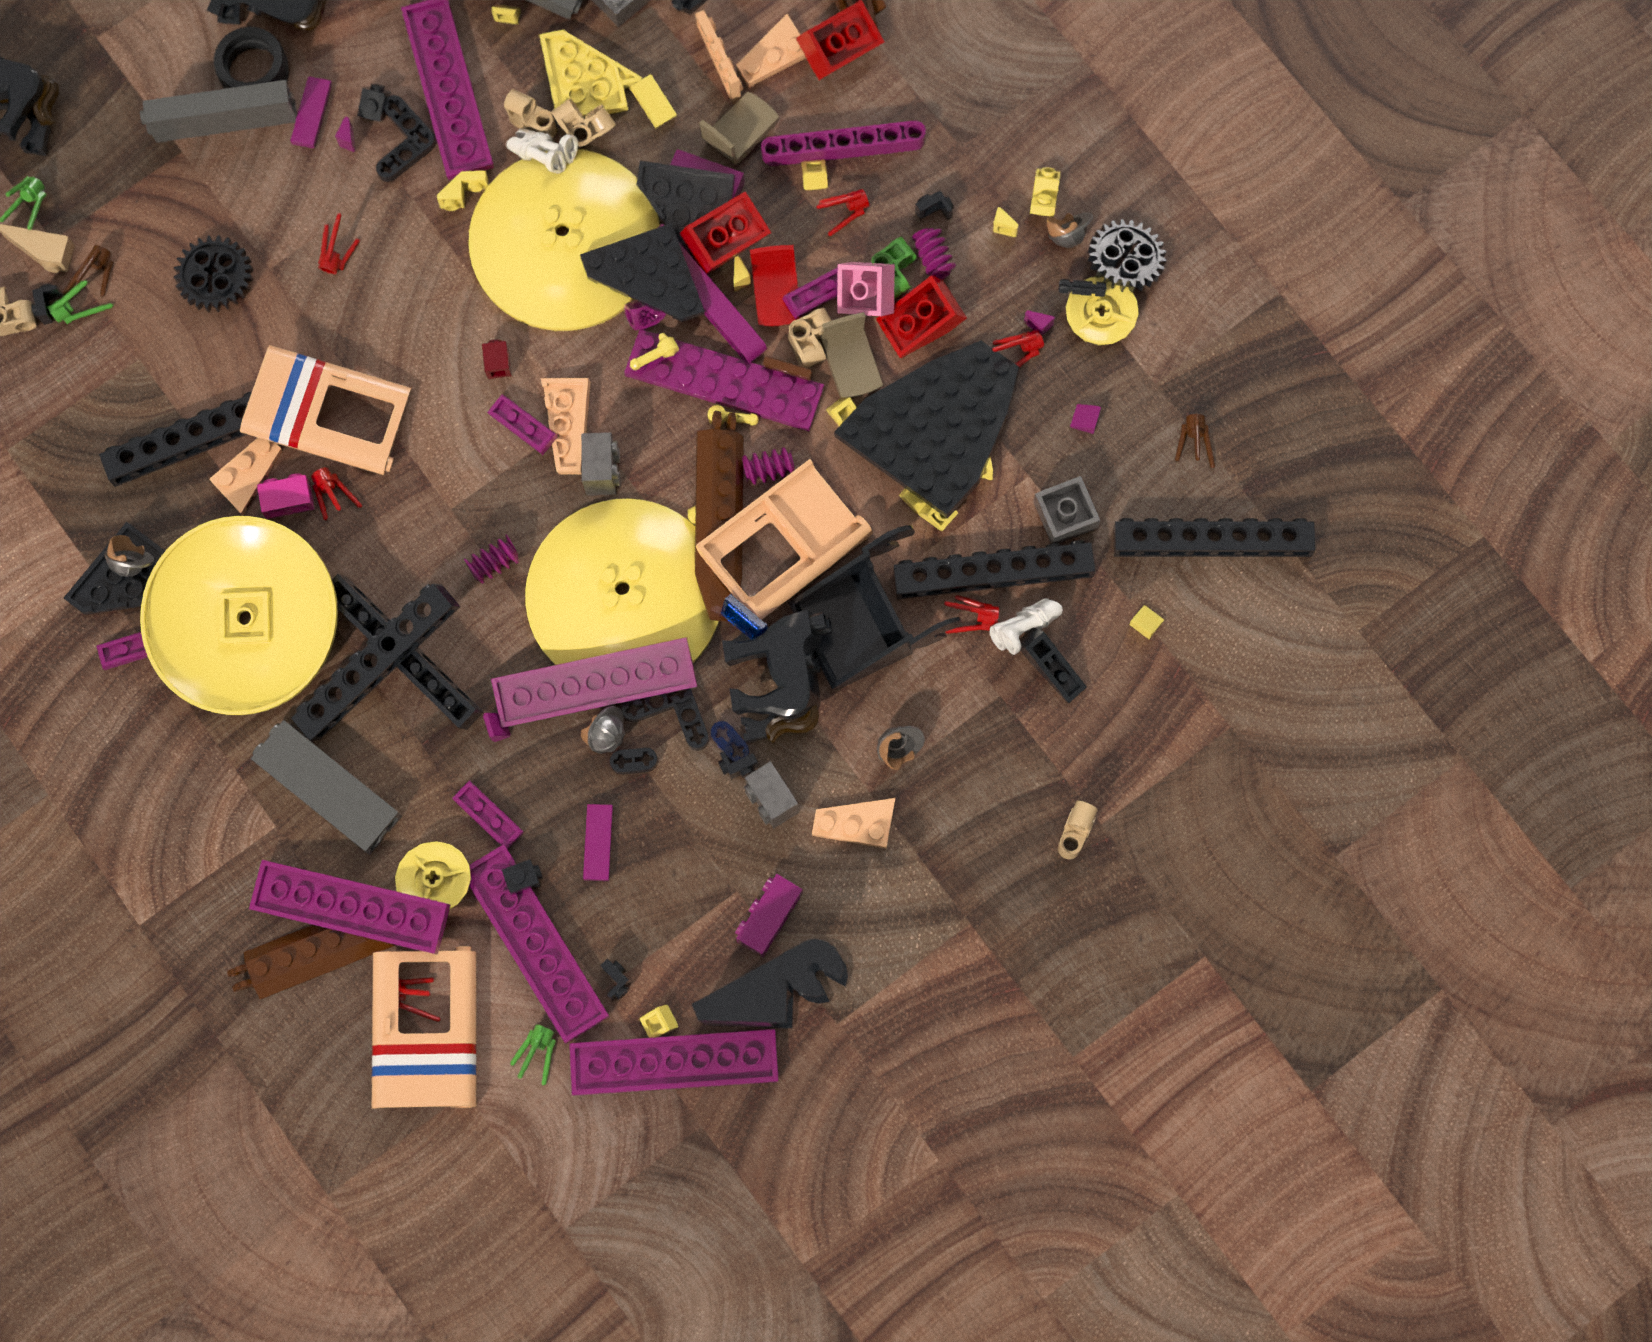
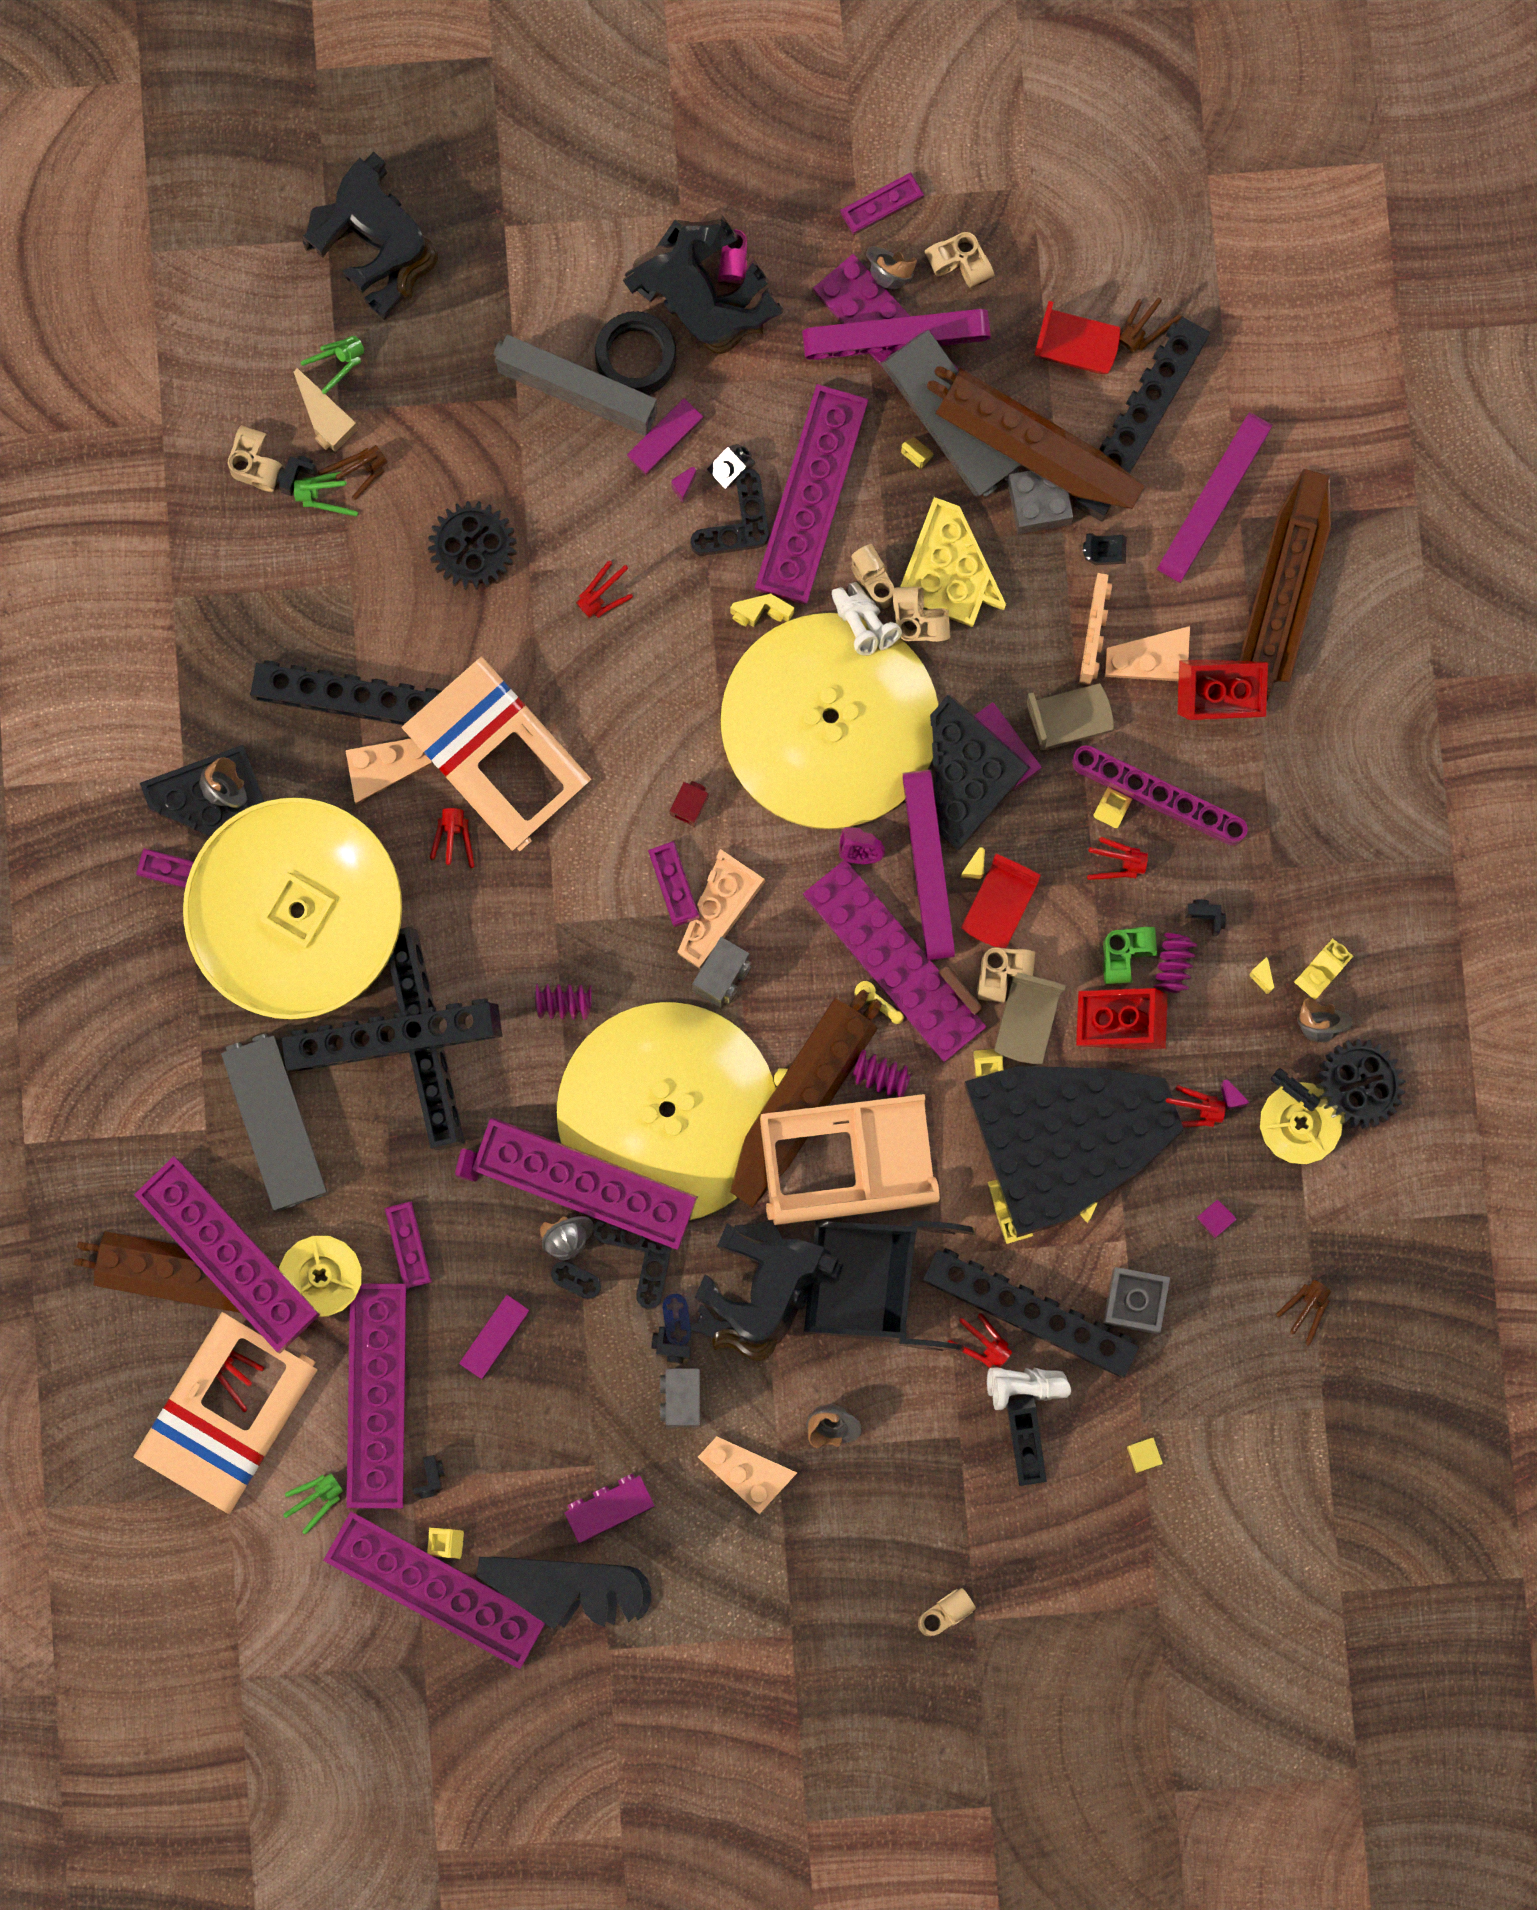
camera: 25 degrees right, 5 degrees up
(285, 496) = (407, 813): dark pink brick -> none
(522, 876) = (403, 1326): black bracket -> none
(648, 270) = (886, 810): black plate -> none
(653, 101) = (1001, 635): light yellow tile -> none
(666, 347) = (857, 896): light yellow piece -> none
(725, 232) = (984, 819): red slope -> none
(742, 617) = (761, 1213): clear blue tile -> none
(812, 294) = (1040, 931): magenta tile -> none
(865, 288) = (1084, 960): bright pink brick -> none
(1202, 546) = (1172, 1369): black brick -> none

